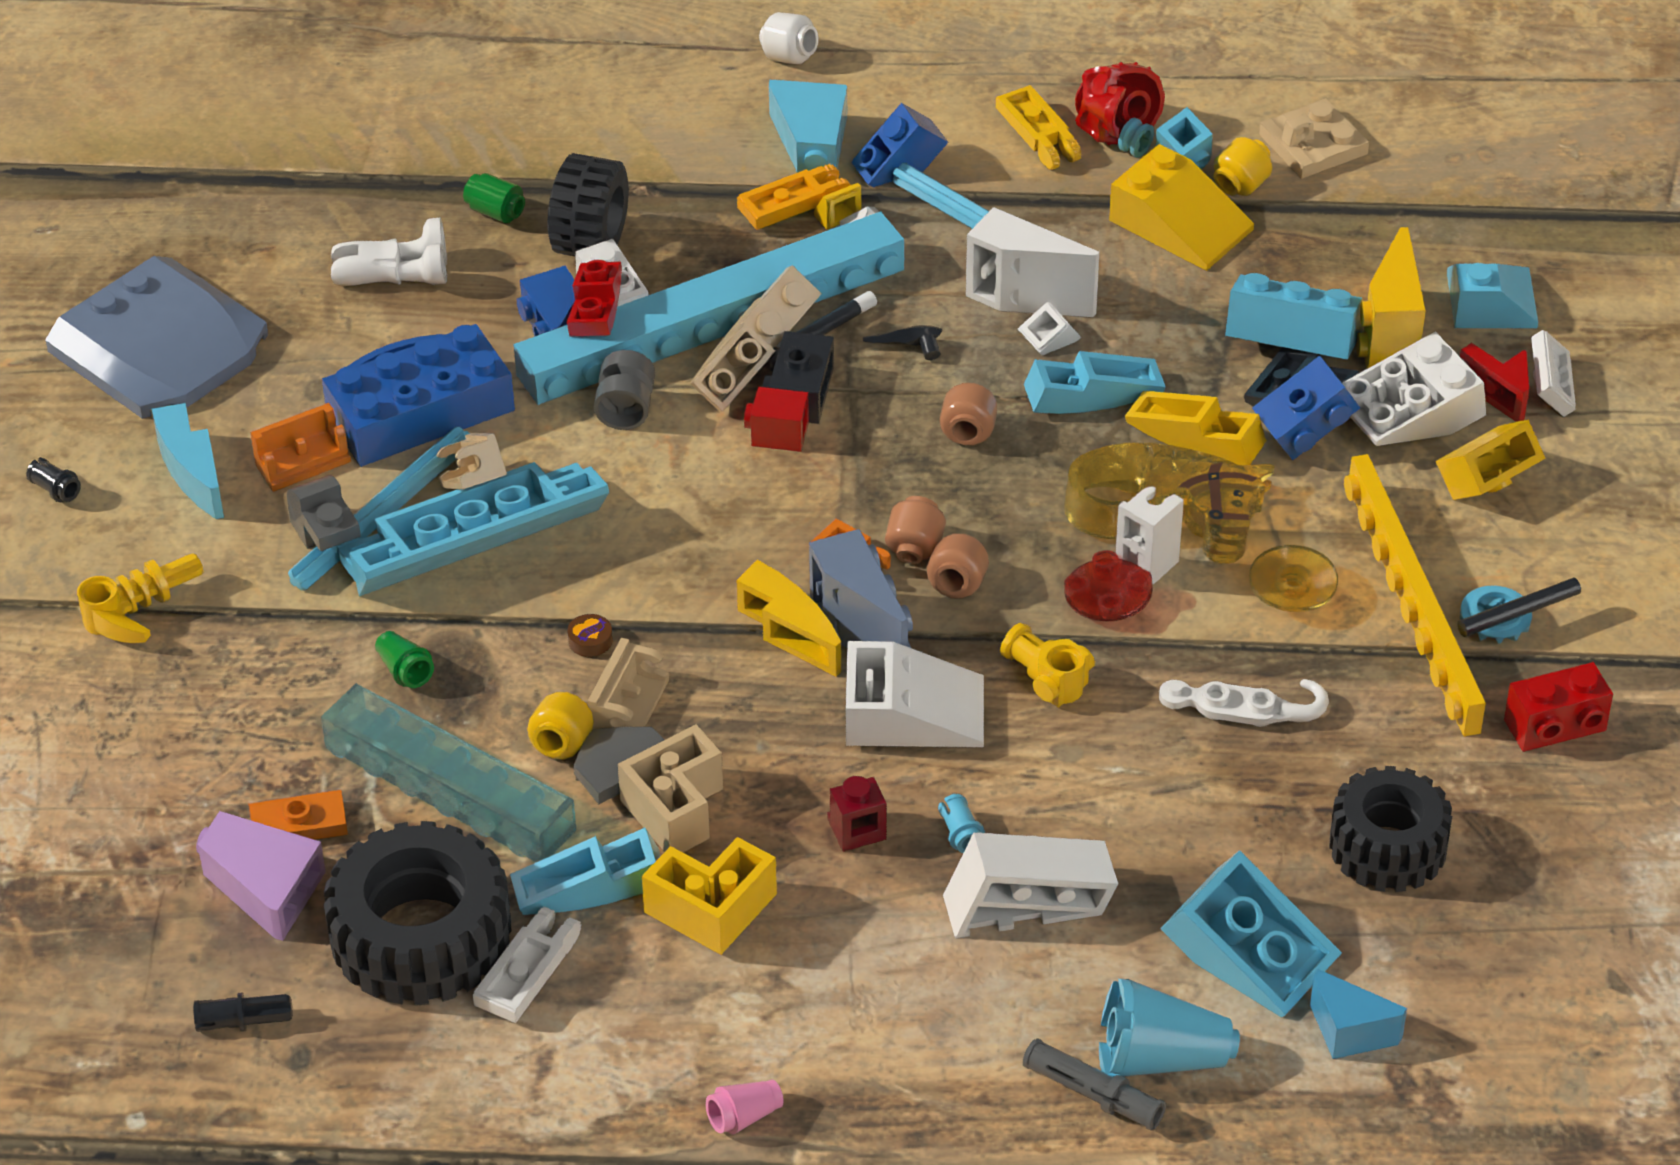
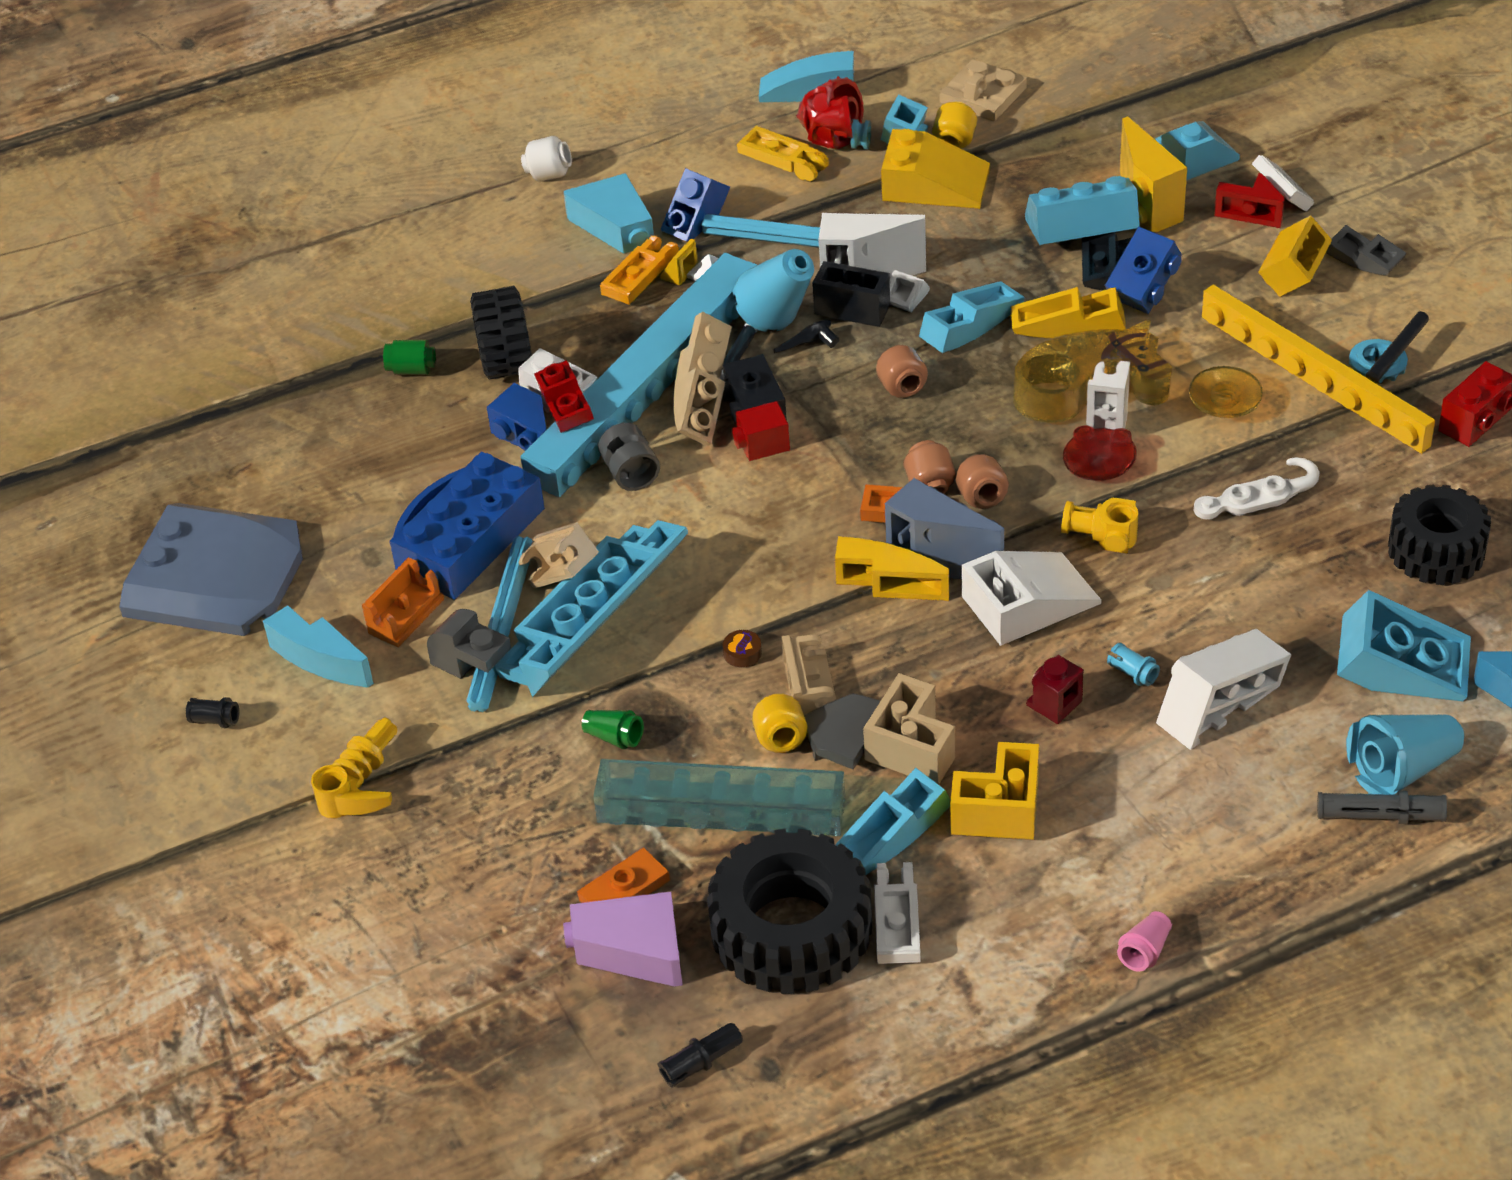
camera: 25 degrees left, 0 degrees up
(392, 260) = (382, 427): white piece -> none
(893, 275) = (774, 290): none -> medium azure cone
(979, 309) = (851, 293): none -> black brick
(1149, 48) = (798, 78): none -> medium azure slope
(1417, 394) = (1211, 228): white slope -> none
(1583, 488) = (1370, 256): none -> dark grey slope

